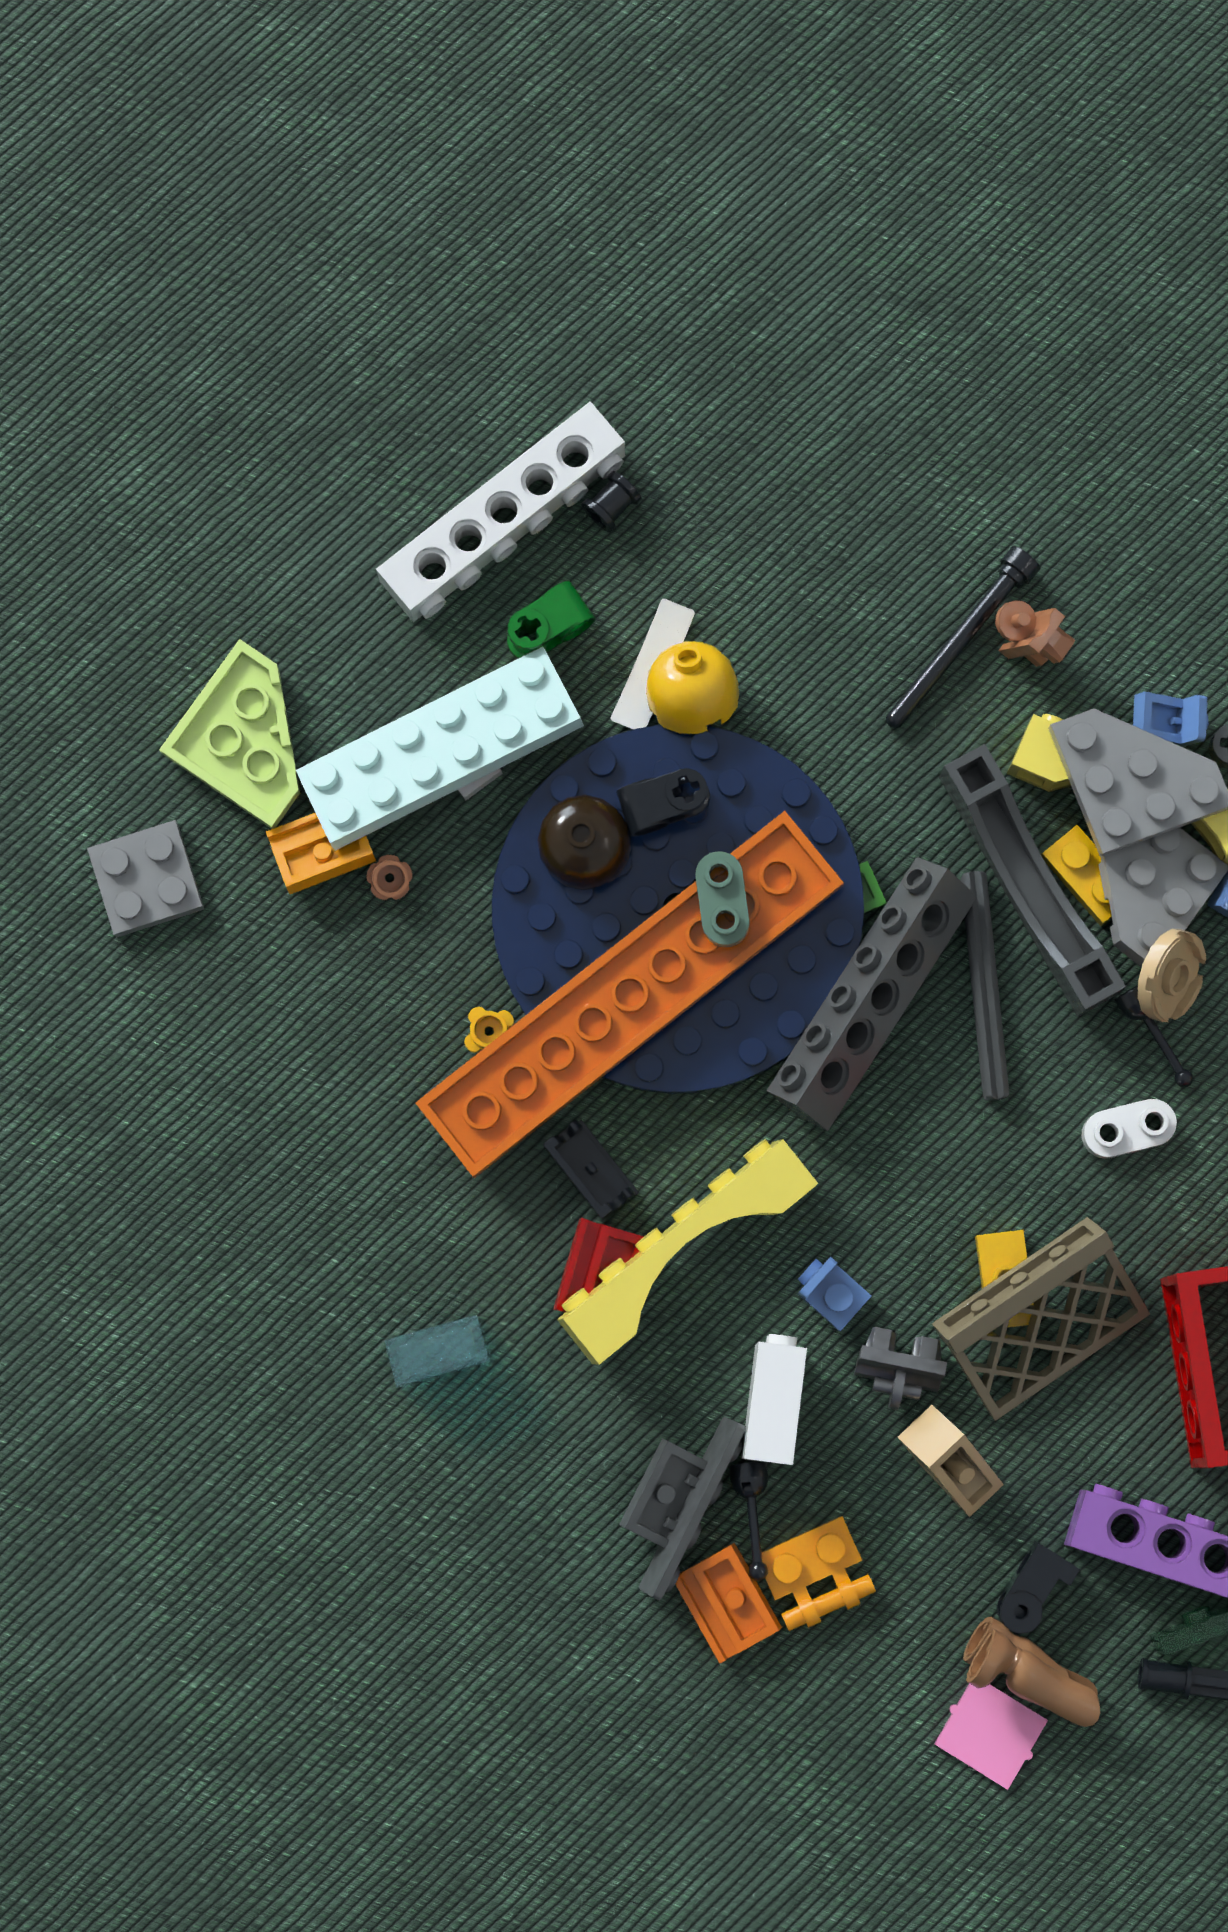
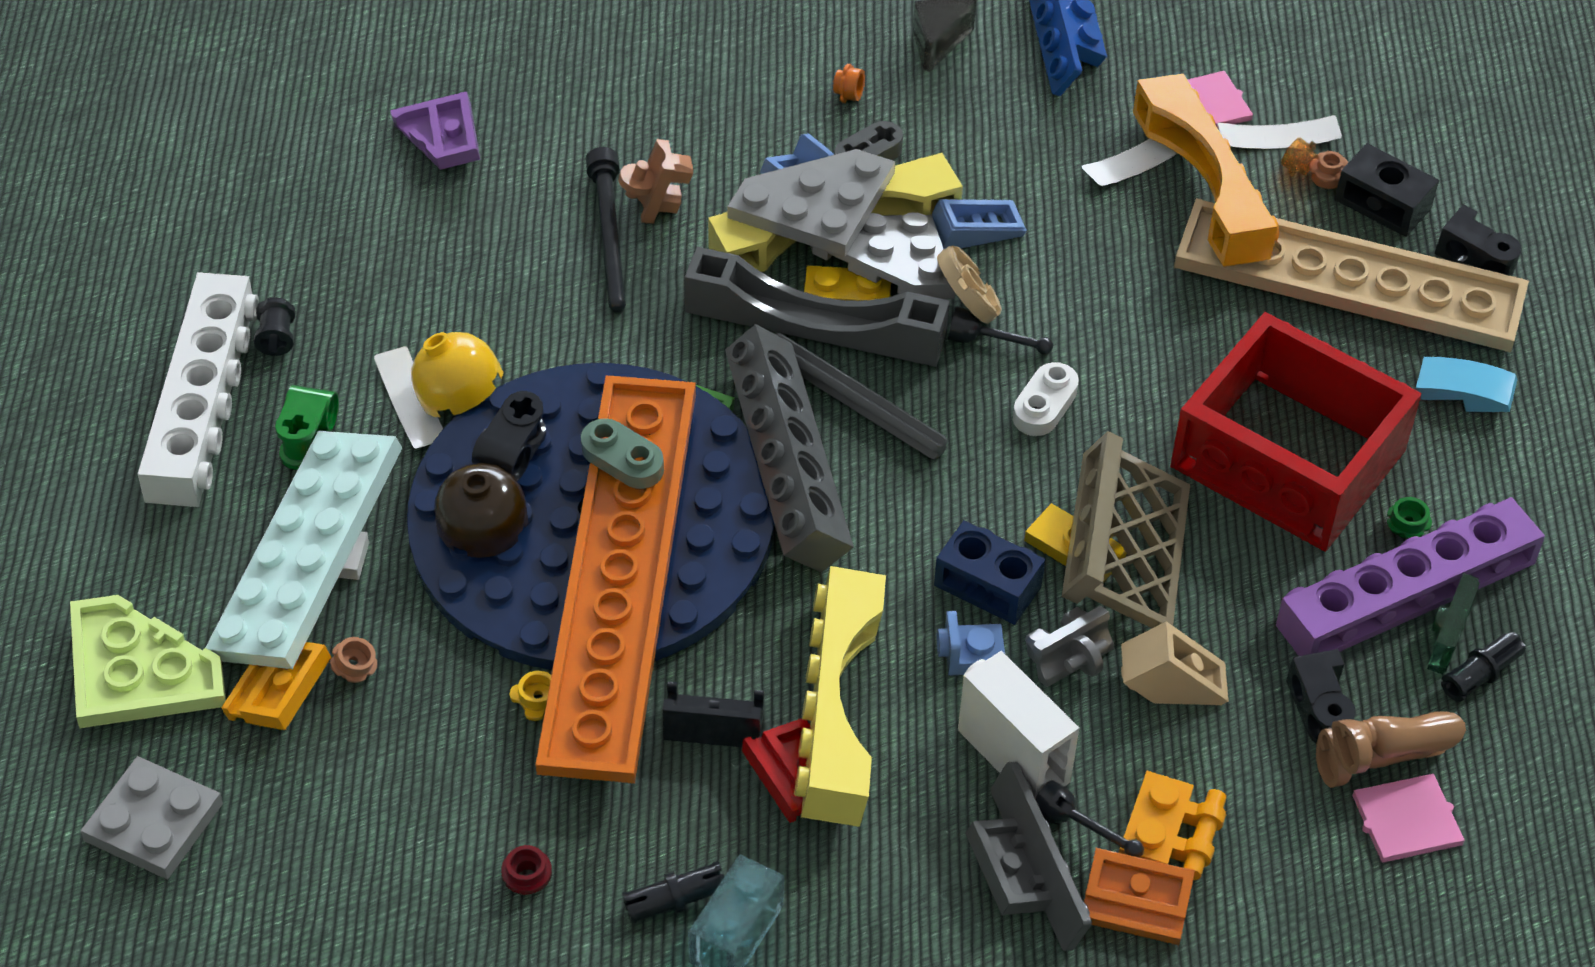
camera: 50 degrees left, 30 degrees down
(335, 1158) = (526, 858): none -> dark red plate
(423, 1285) = (672, 892): none -> black pin
(897, 1248) = (989, 572): none -> dark blue brick
(929, 407) = (441, 129): none -> medium lavender wing

